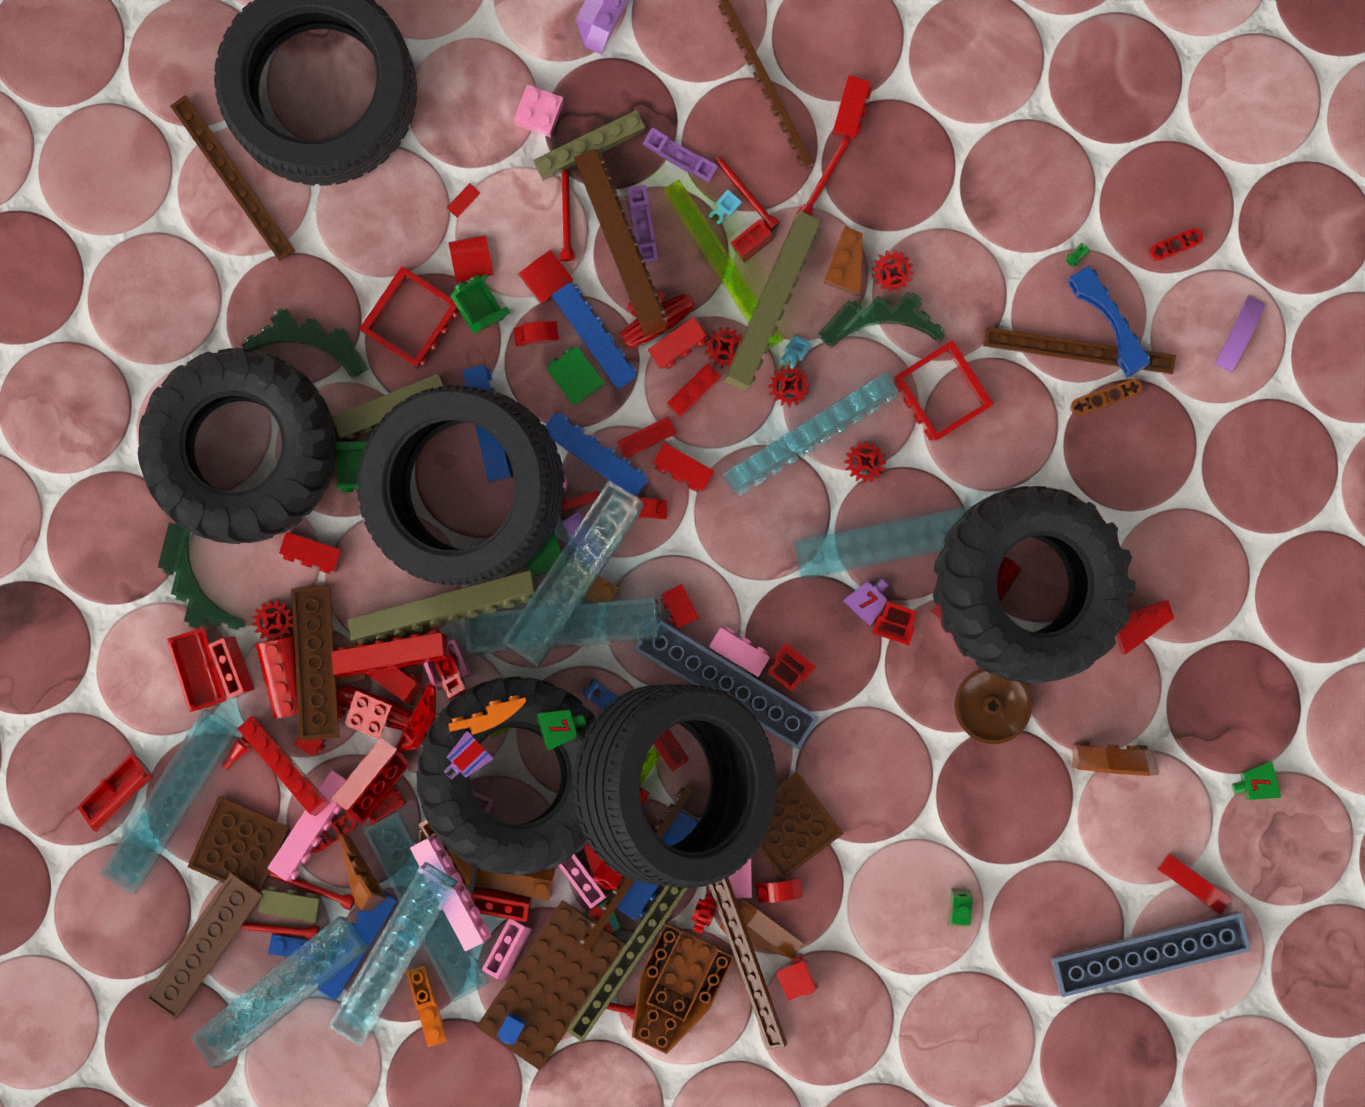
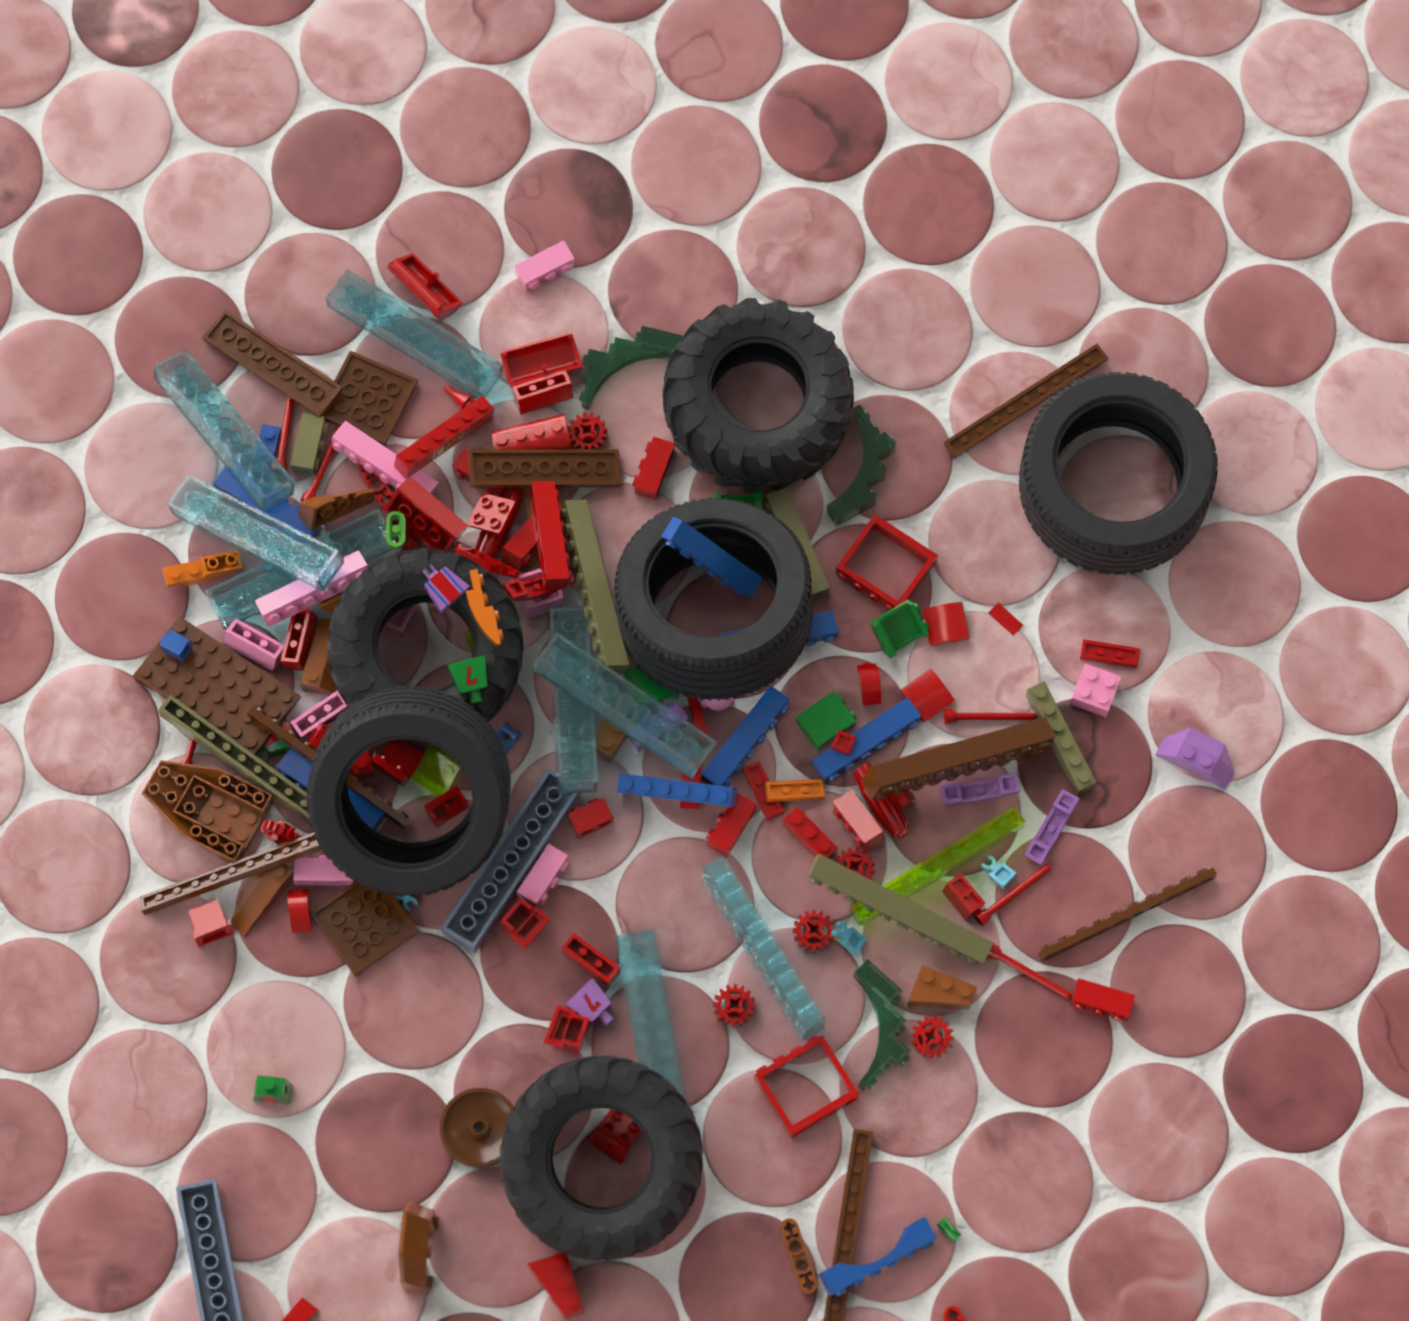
camera: 90 degrees right, 15 degrees down
(91, 669) = (545, 266): none -> bright pink brick
(388, 811) = (395, 531): none -> bright green plate
(419, 489) = (711, 557): none -> blue brick
(498, 97) = (1109, 653): none -> red tile
(600, 357) = (843, 742): none -> red tile
(646, 406) = (795, 790): none -> orange tile
(658, 493) = (677, 790): none -> blue arch
(824, 602) = (591, 960): none -> red brick

